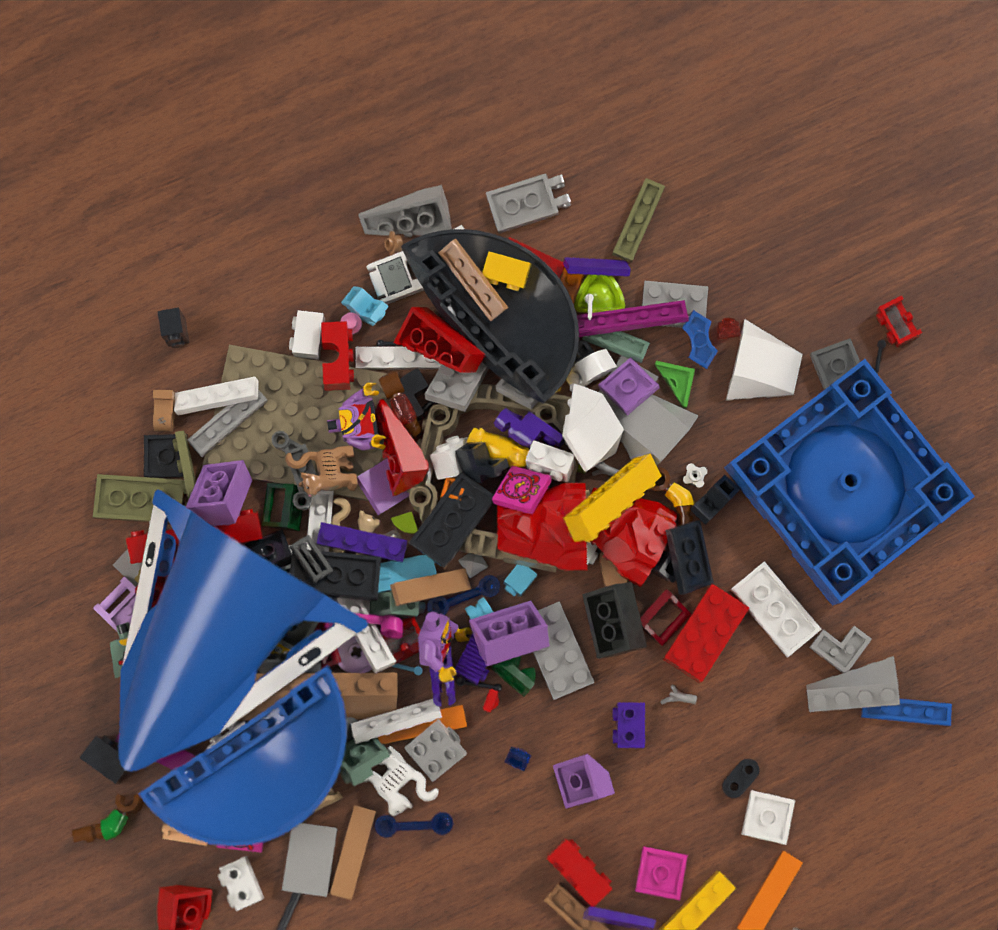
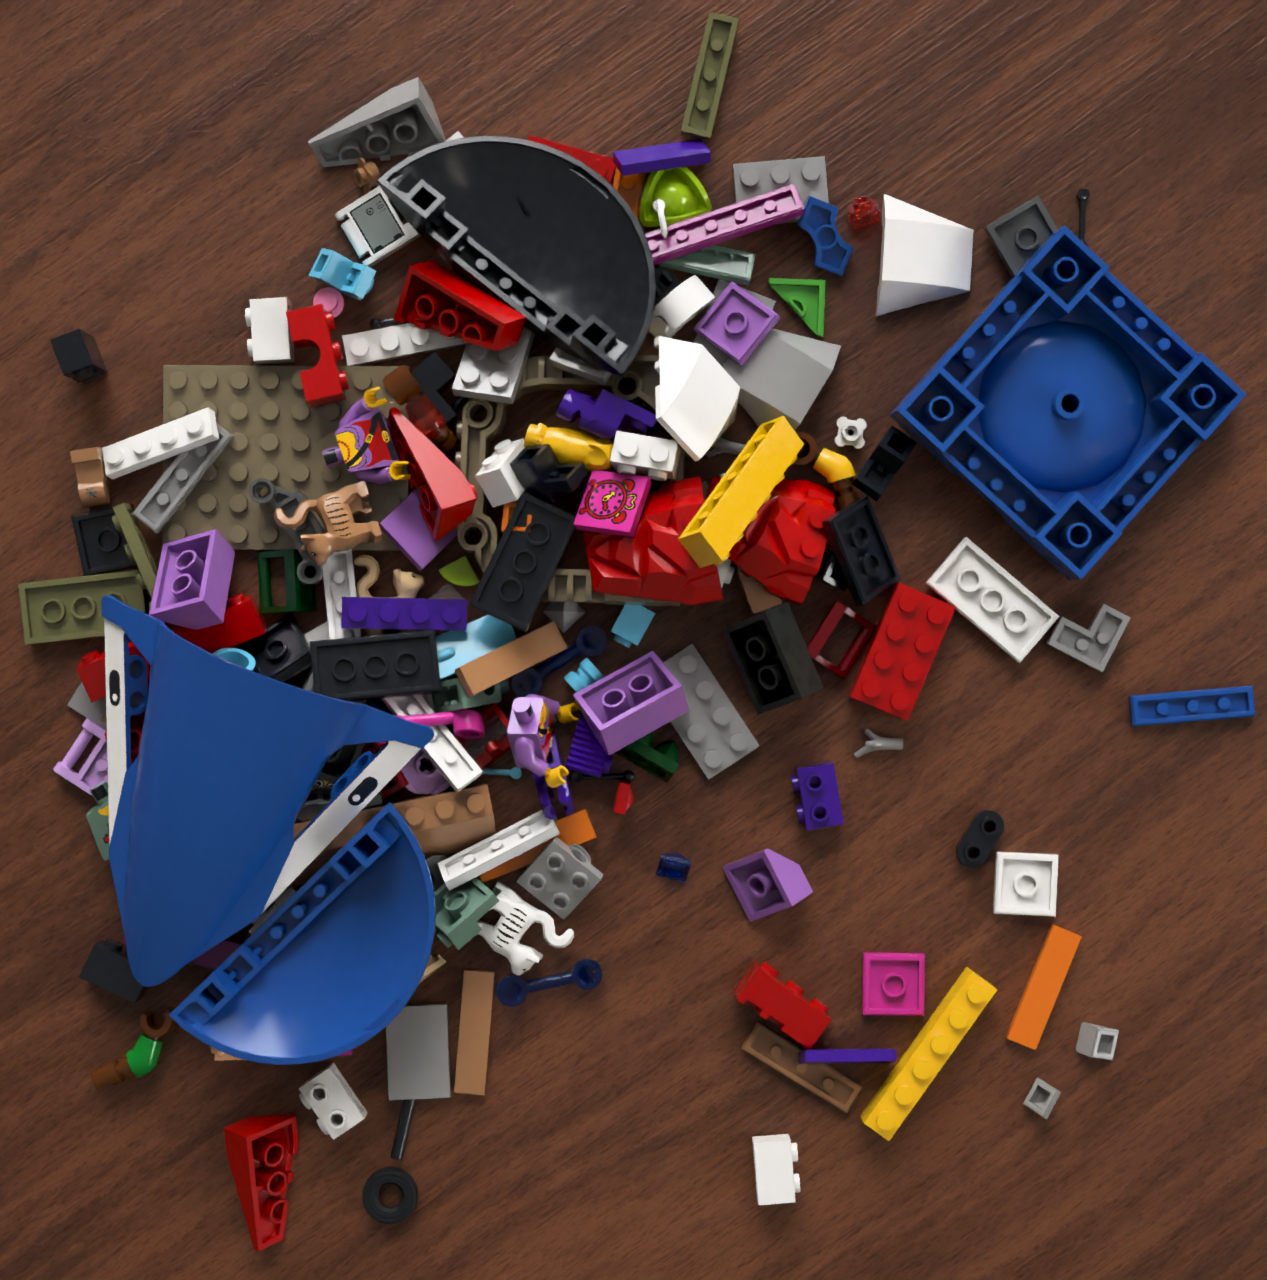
camera: 10 degrees left, 10 degrees up
(314, 578) = (356, 672): dark grey tile -> none
(473, 280) = (488, 210): medium nougat tile -> none
(506, 270) = (533, 188): yellow brick -> none
(526, 202) = (544, 78): light grey tile -> none
(857, 688) = (1120, 692): light grey wedge -> none
(897, 322) = (1101, 160): red window -> none

